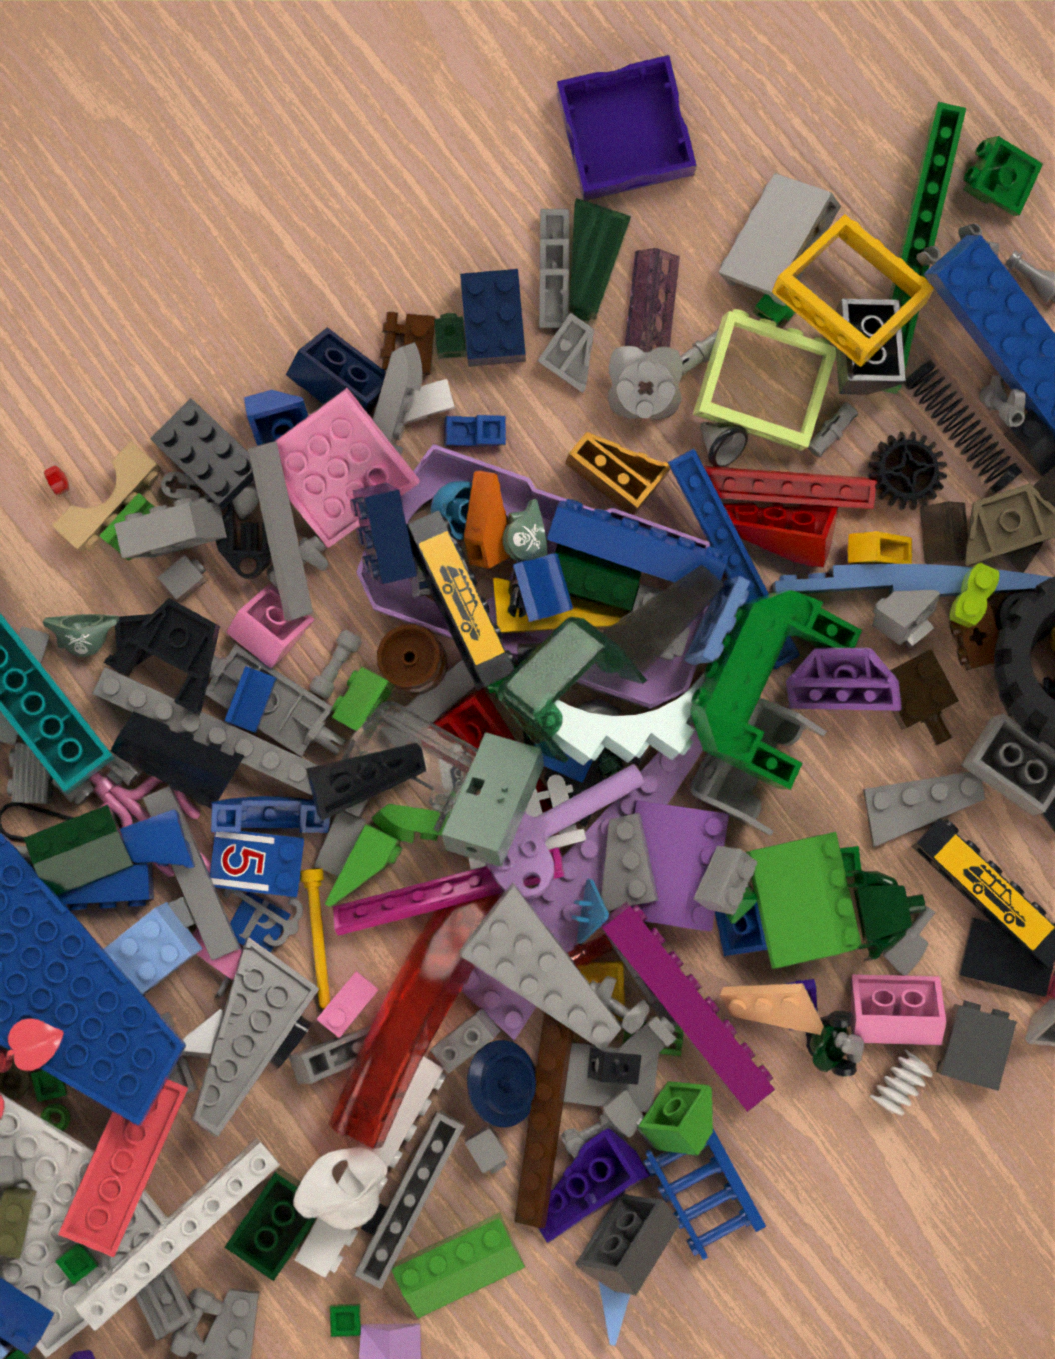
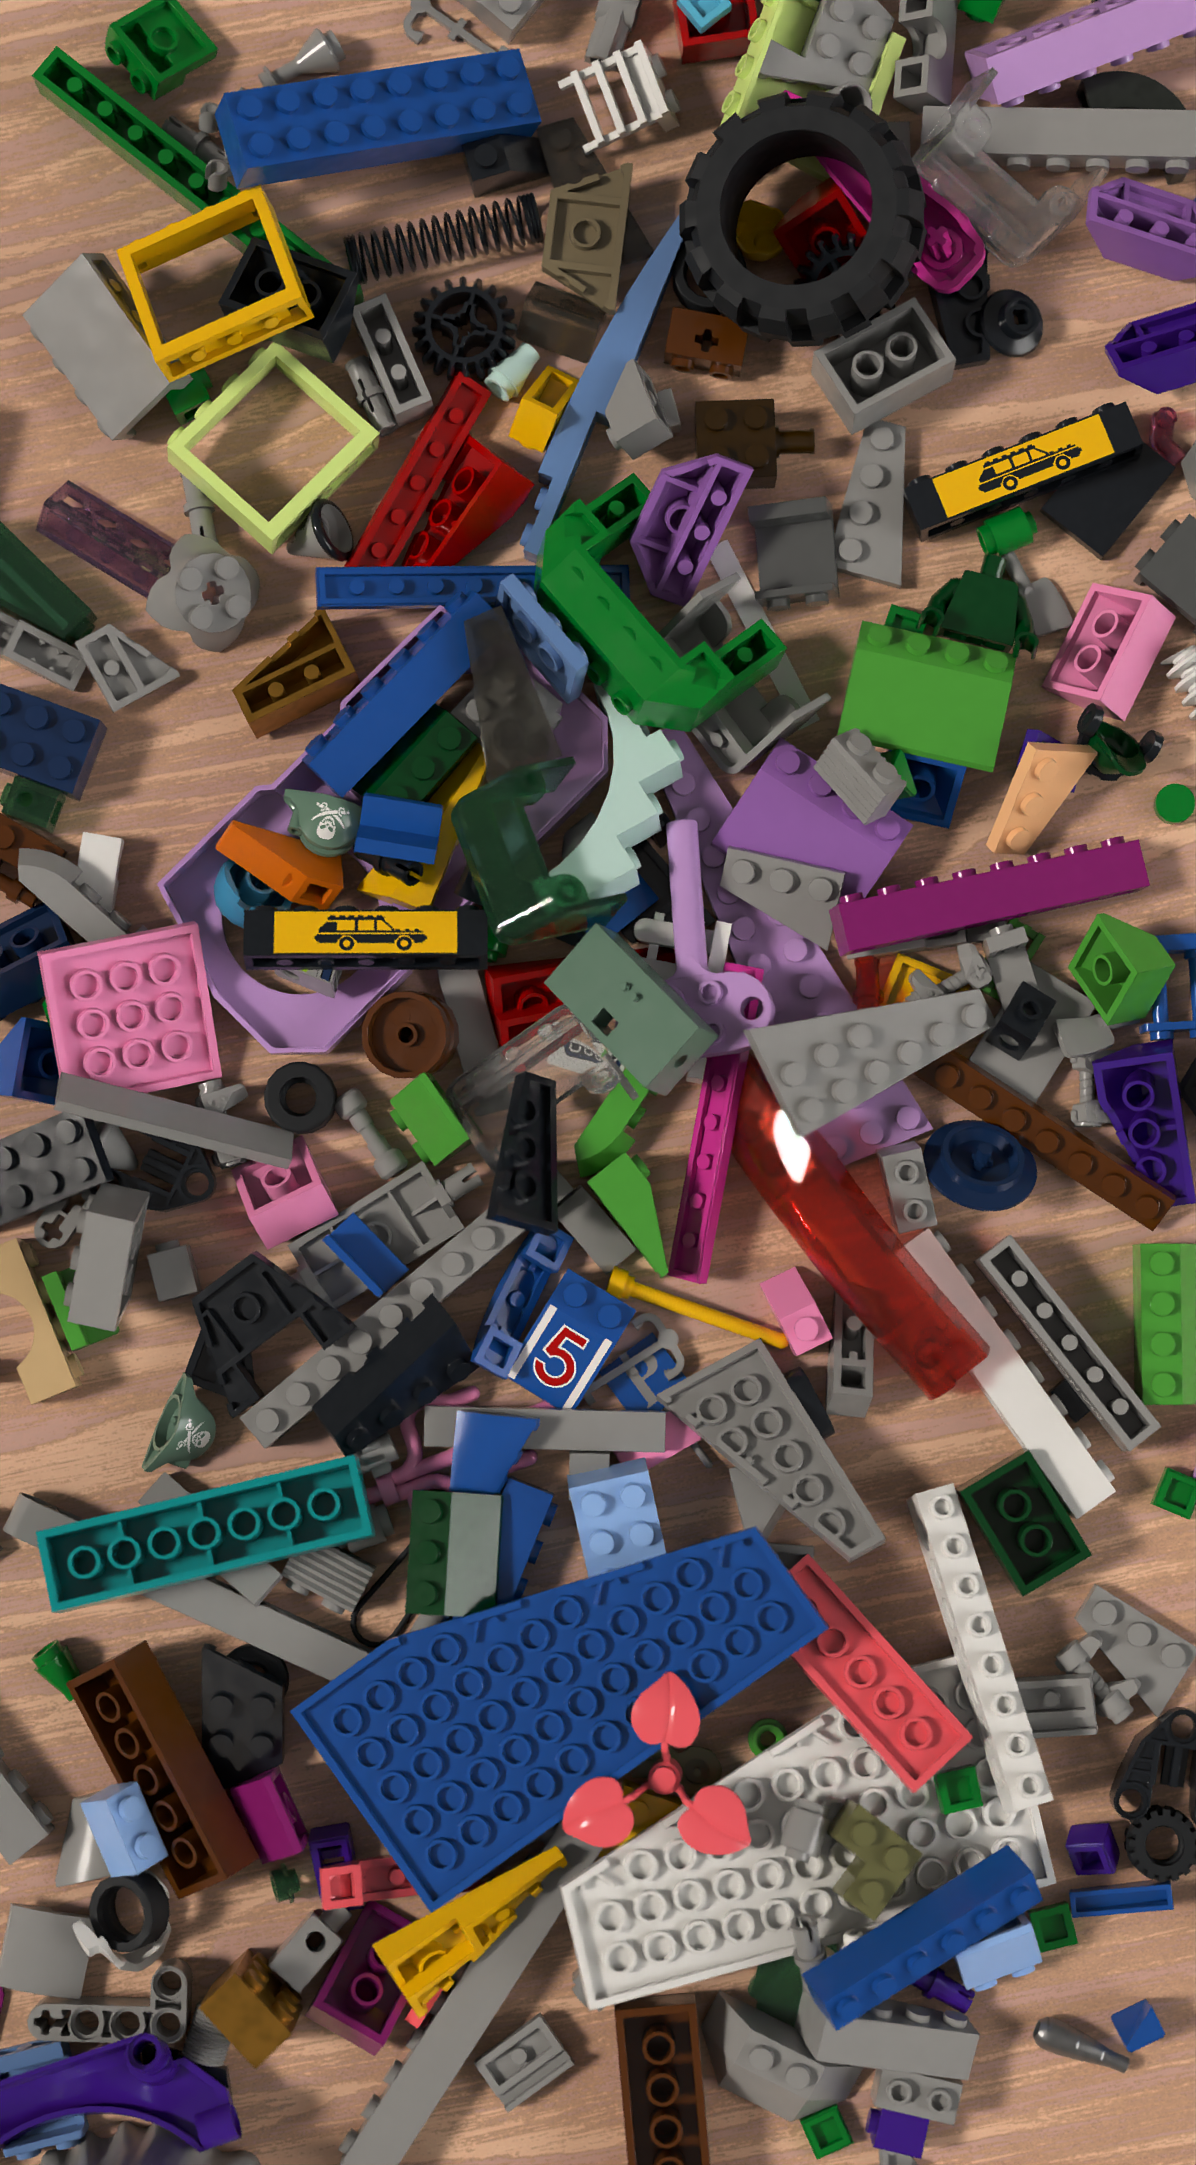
camera: 70 degrees left, 0 degrees up
(47, 1086) = (723, 1727): green plate -> none
(323, 595) = (276, 1093): none -> black tyre
(323, 1198) = (1016, 1448): white piece -> none
(383, 533) = (239, 992): dark blue brick -> none
(474, 431) = (164, 829): blue slope -> none
(487, 1150) = (1051, 1222): light grey brick -> none
(592, 913) = (823, 957): dark azure piece -> none
(609, 765) = (653, 854): clear green plate -> none
(807, 756) = (750, 612): none -> white sticker
(813, 1102) = (1174, 804): none -> green tile
(852, 1045) = (1128, 722): light grey arm -> none
(861, 765) = (795, 553): none -> dark grey panel
(862, 432) = (392, 360): none -> light grey brick
(893, 516) = (512, 372): none -> light aqua cone
(945, 902) = (1007, 532): none -> green brick
(947, 229) = (198, 143): none -> light grey pin
(975, 588) = (663, 324): lime brick -> none
(995, 398) = (427, 183): light grey piece -> none

